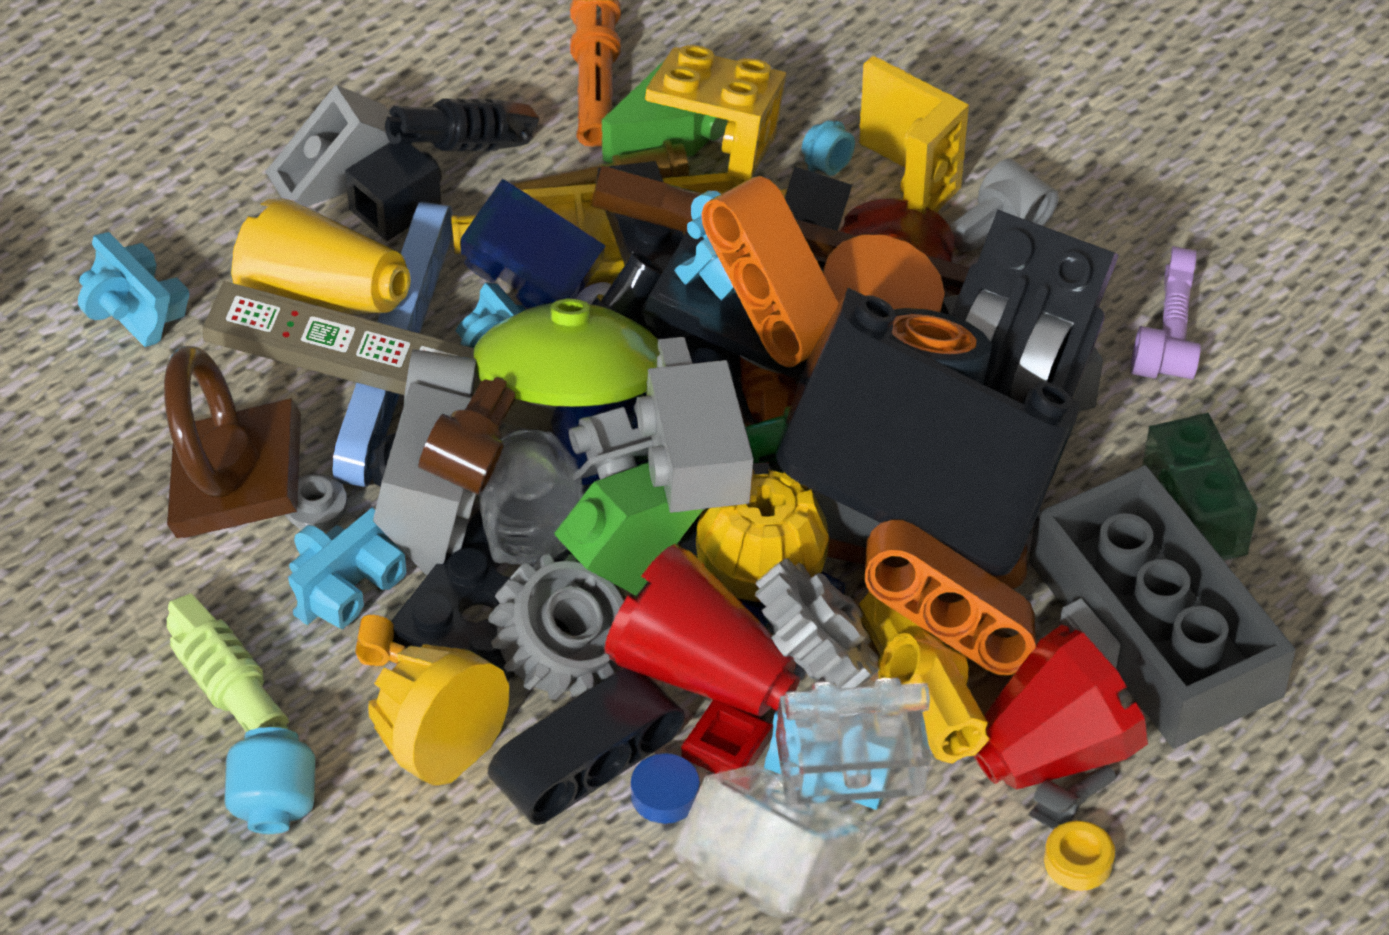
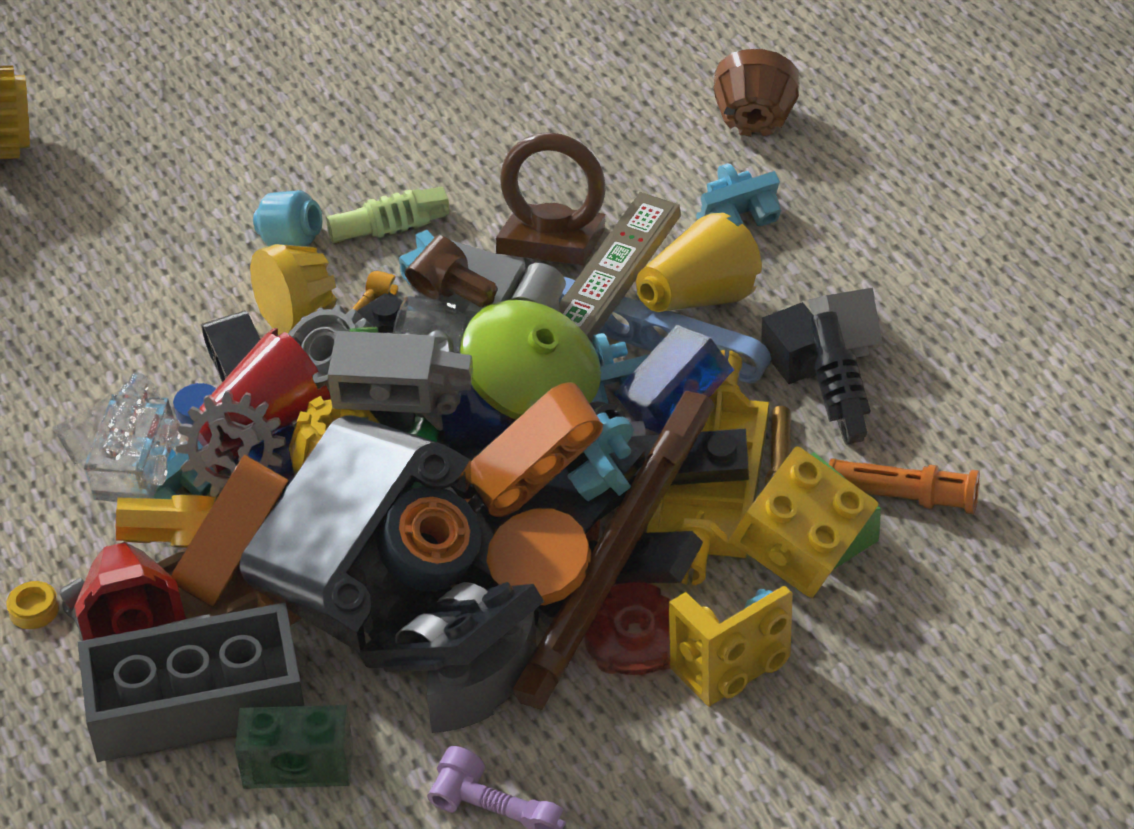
camera: 110 degrees right, 5 degrees down
(1008, 189) = (658, 714): light grey axle -> none

